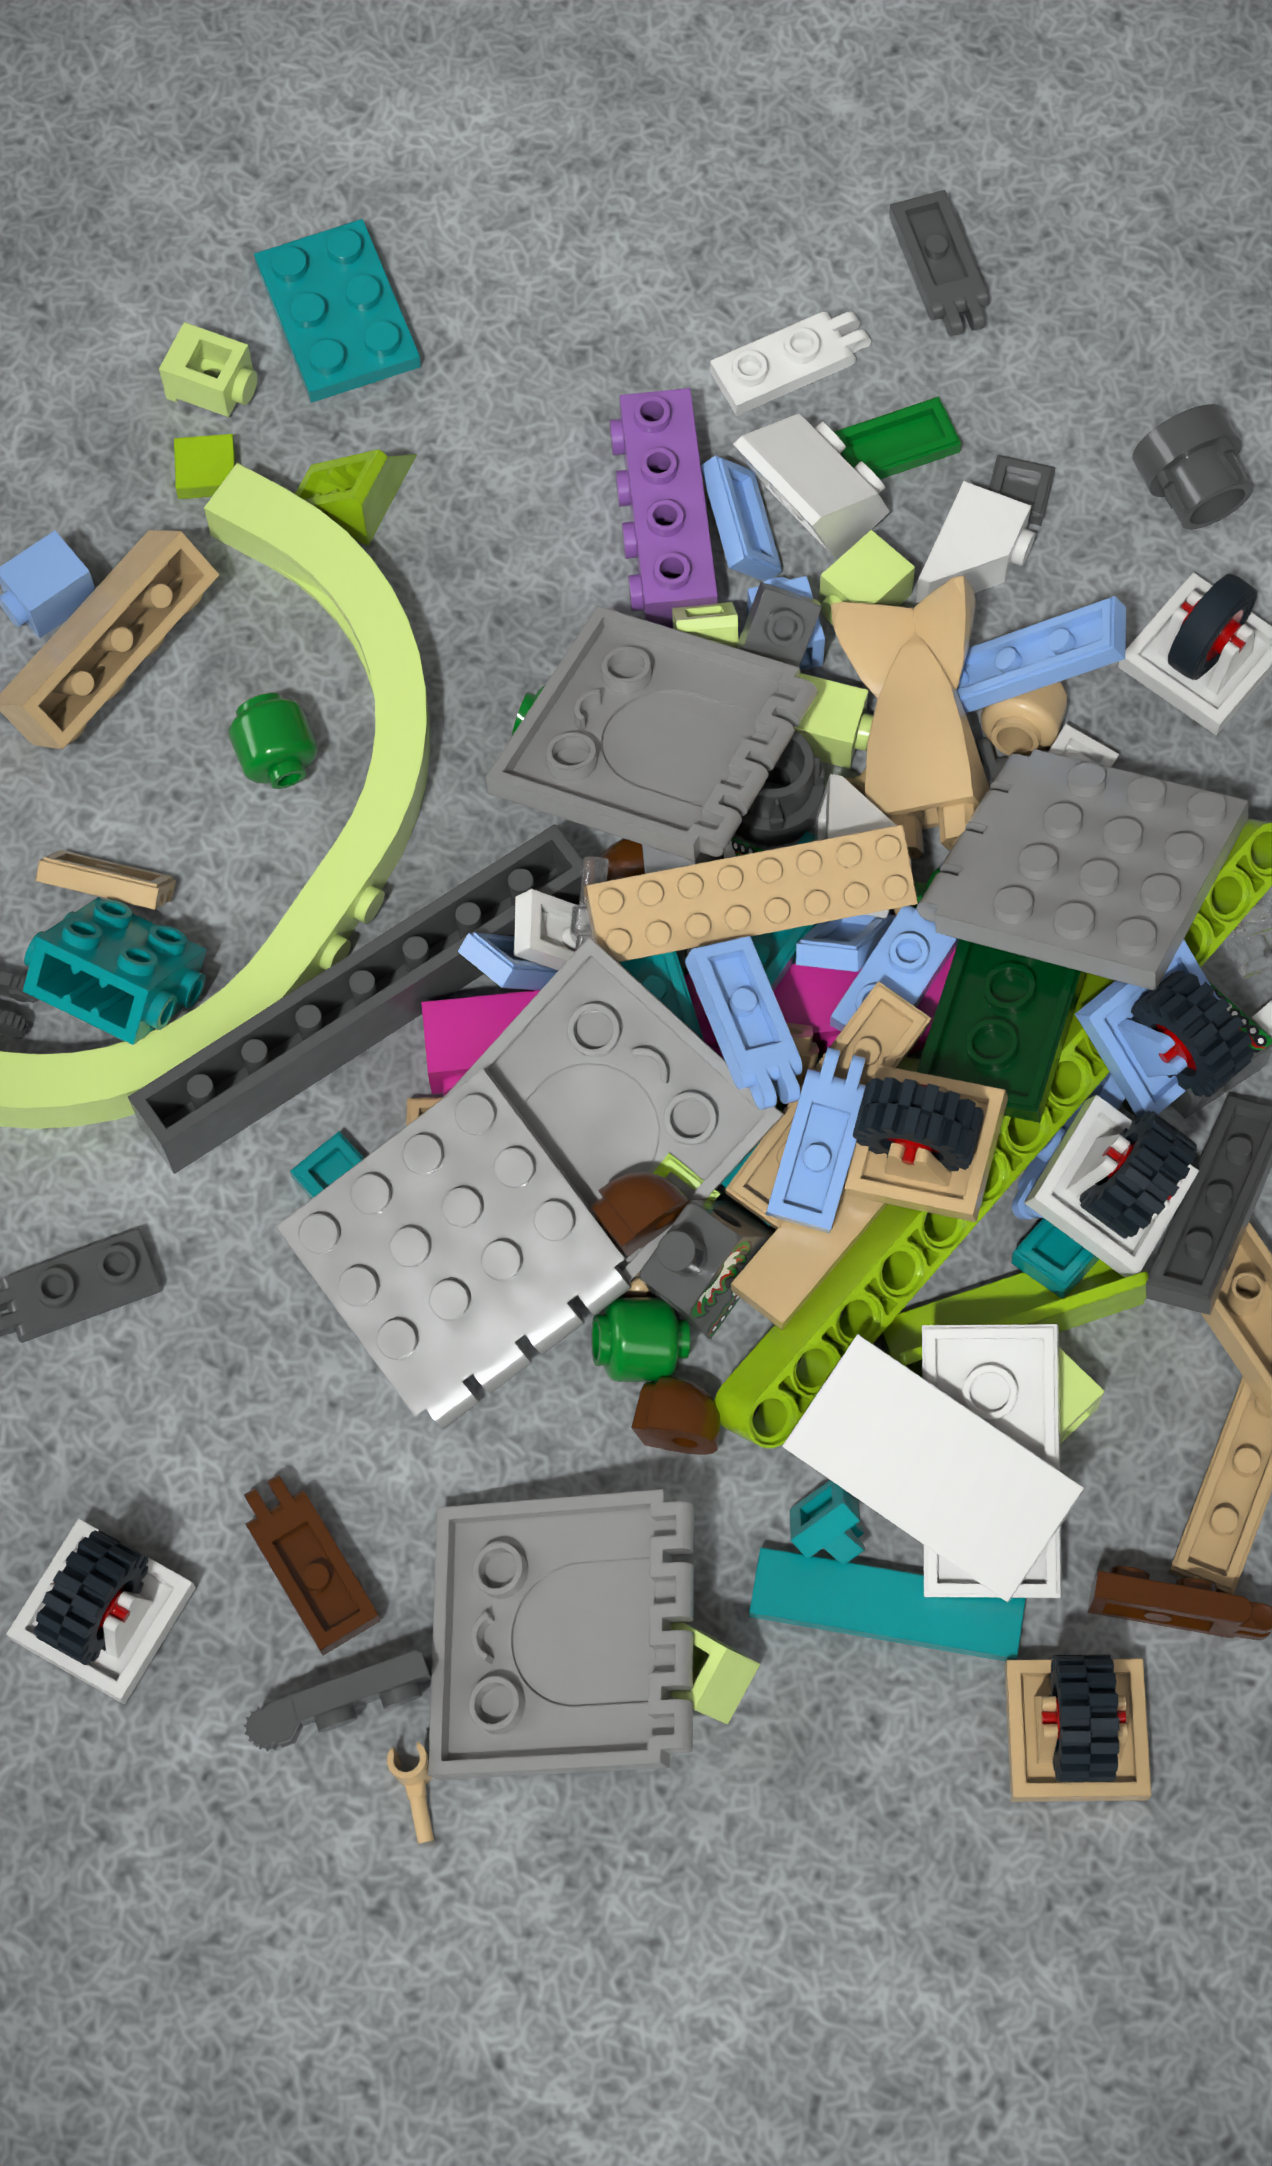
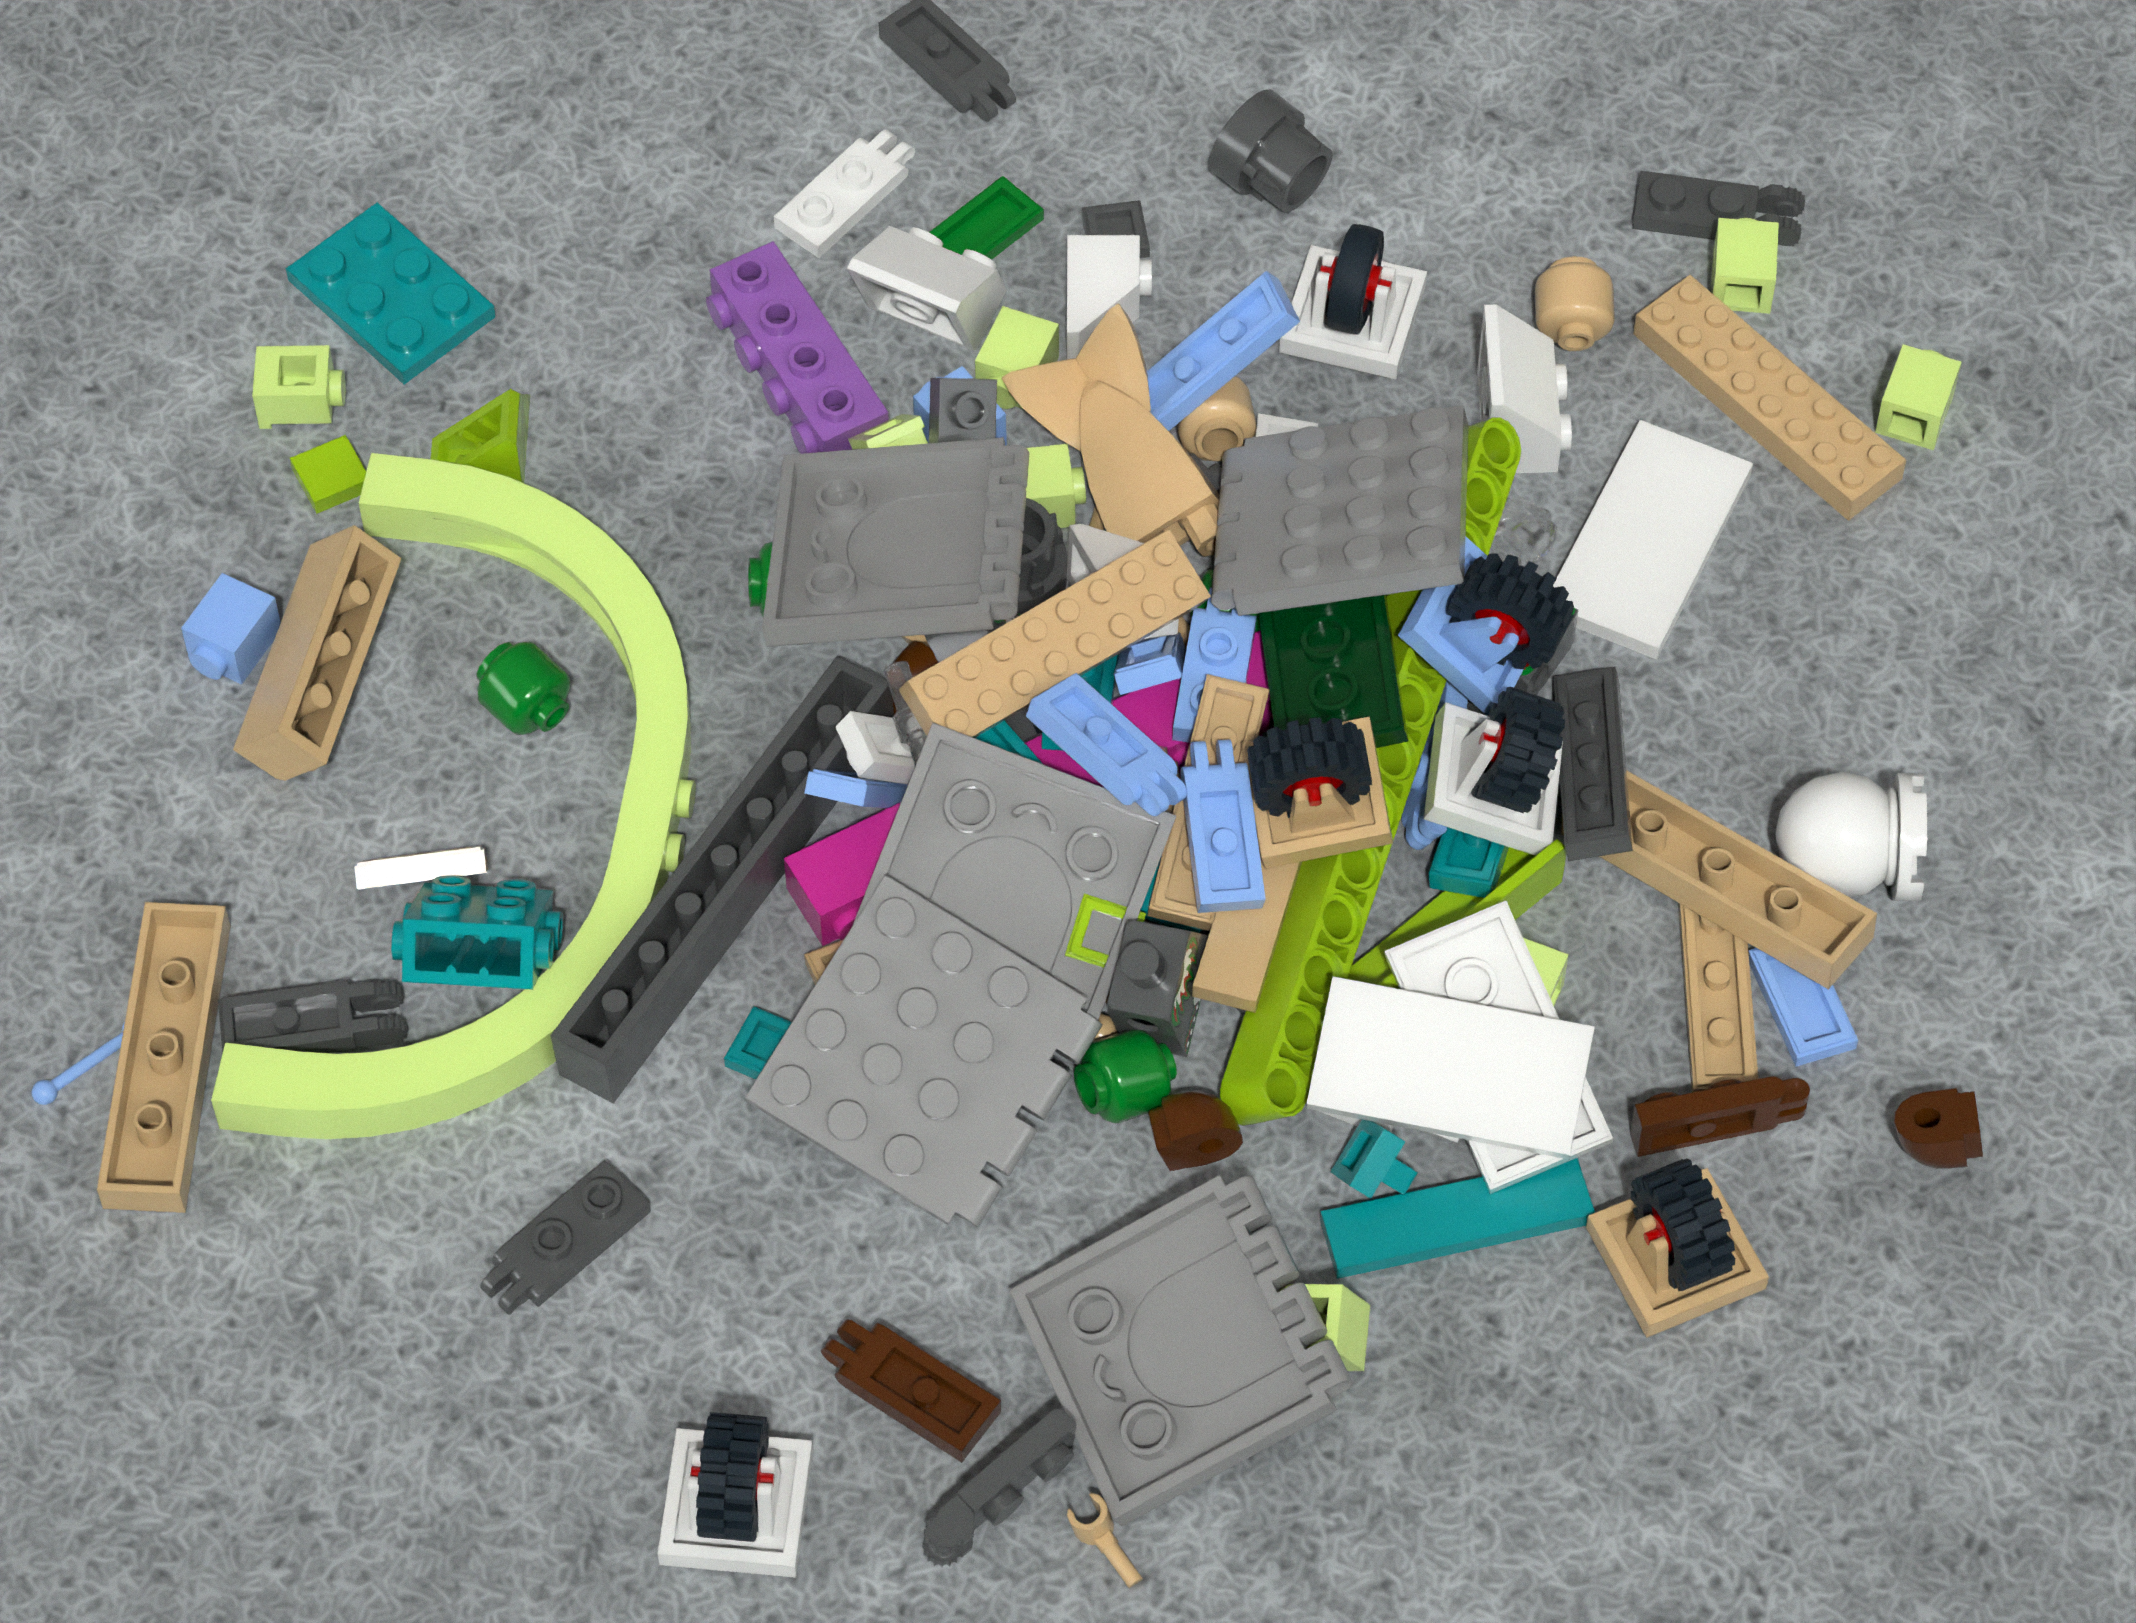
camera: 25 degrees left, 10 degrees down
(638, 1208) = (1081, 947): reddish brown piece -> none
(741, 519) = (872, 342): light blue tile -> none

